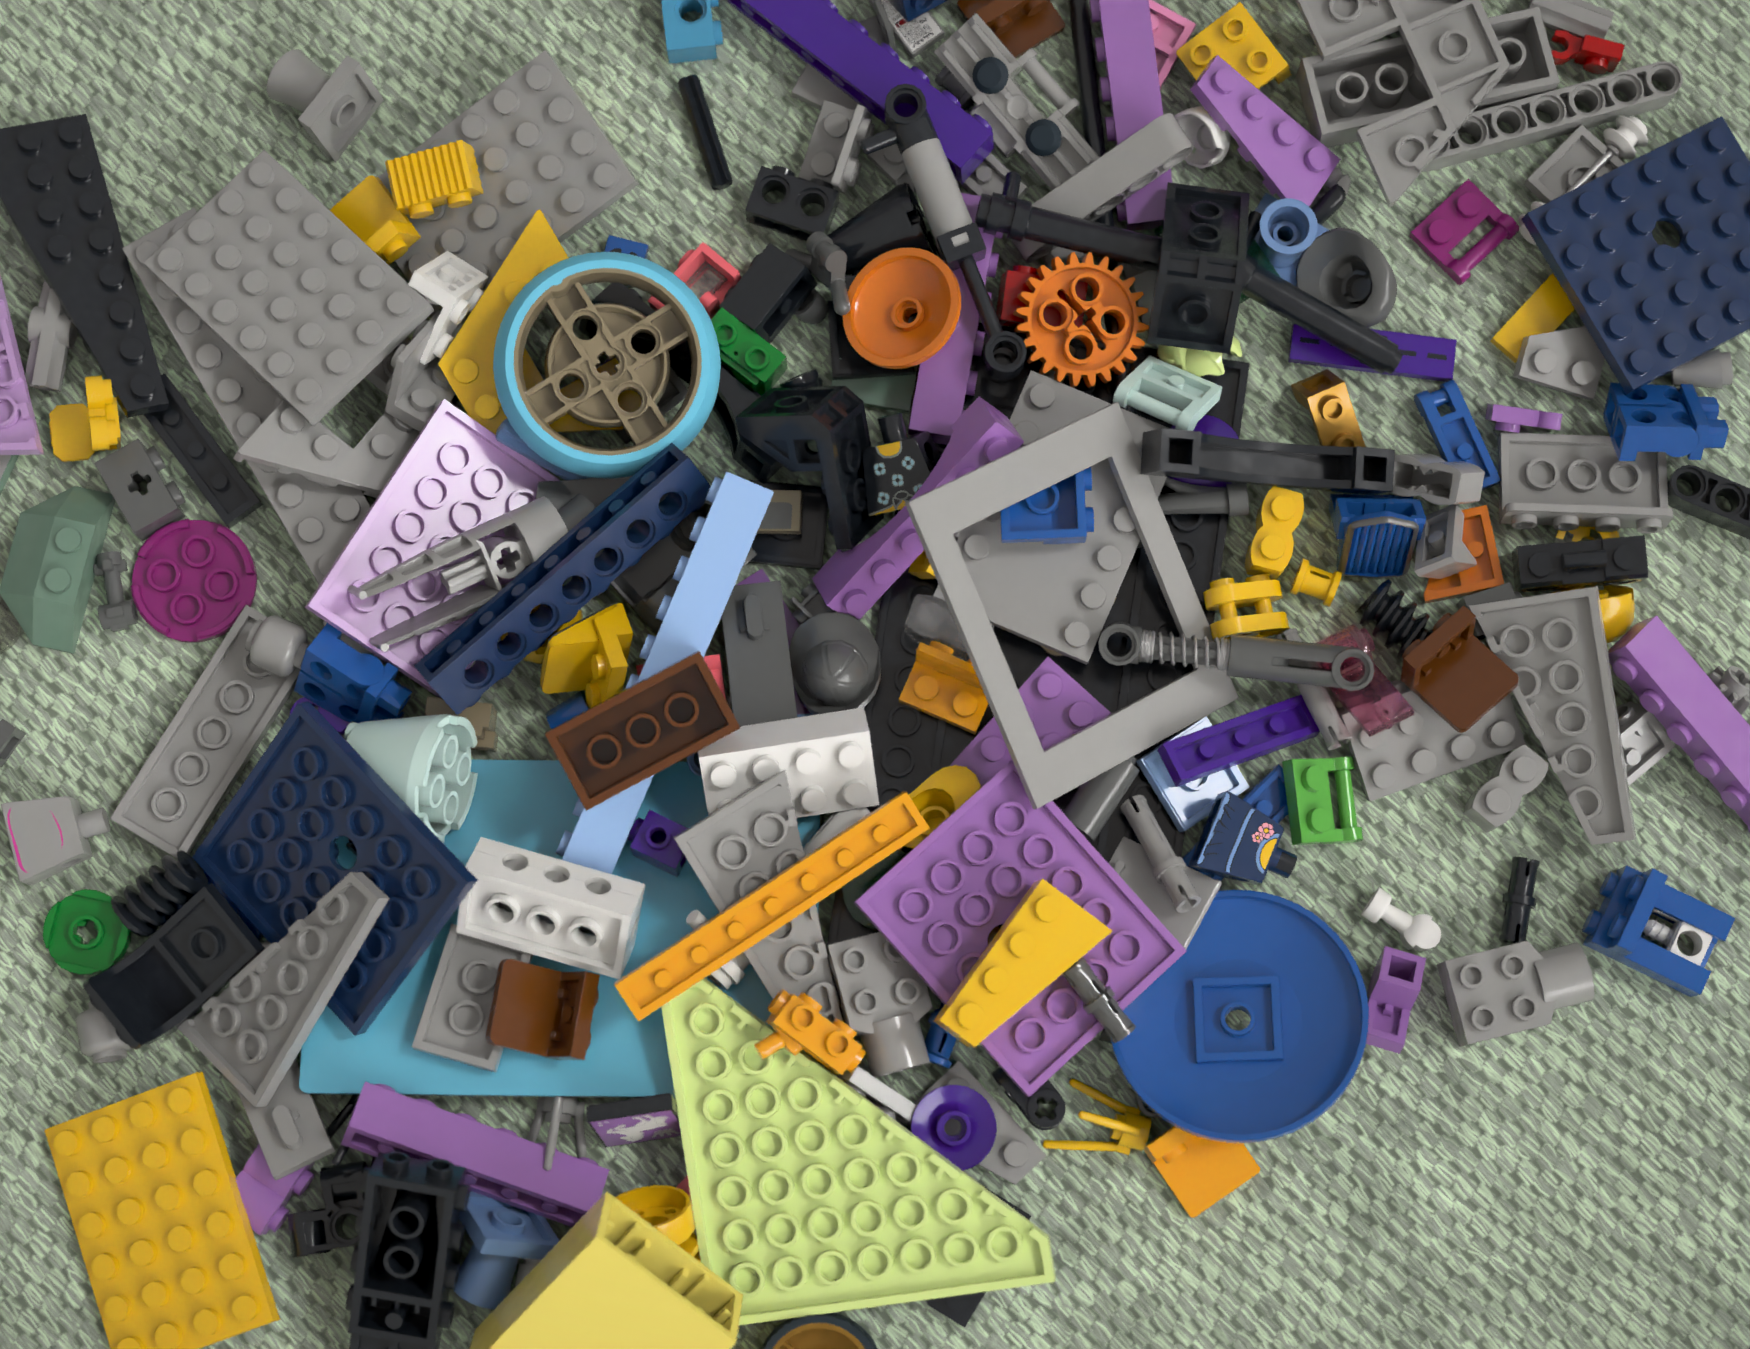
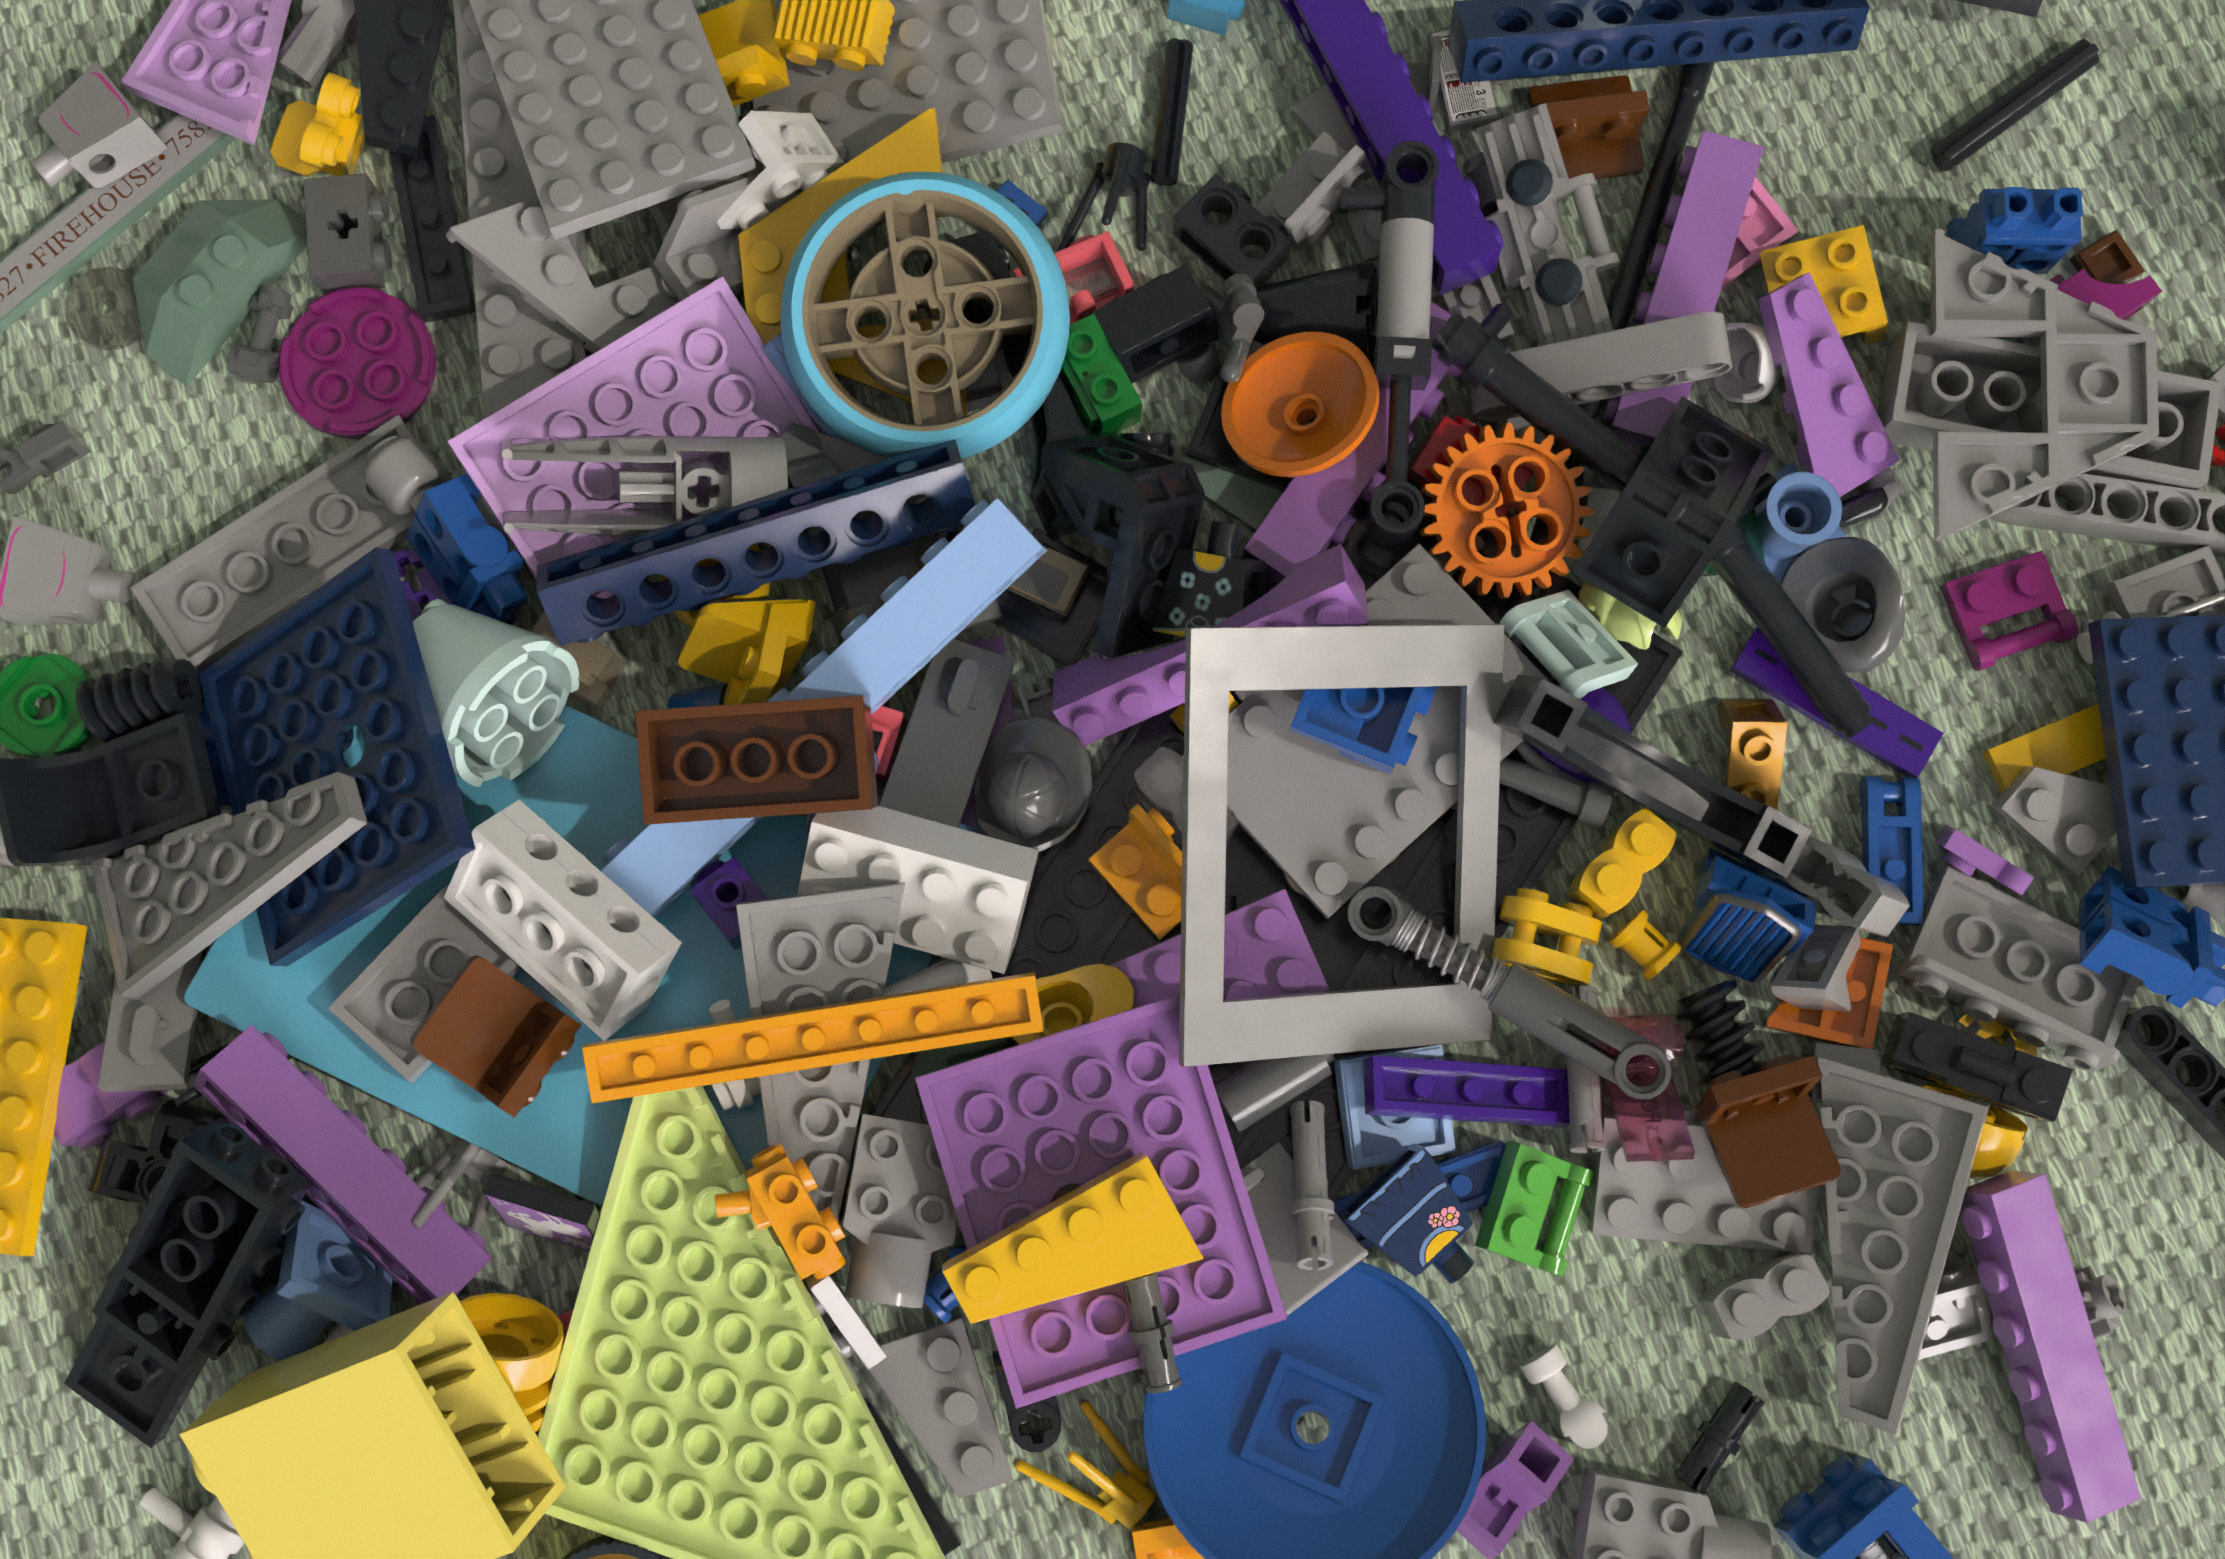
camera: 25 degrees right, 0 degrees up
(691, 194) = (1120, 175): none -> black plant
(976, 1122) = (921, 1427): dark purple dish -> none

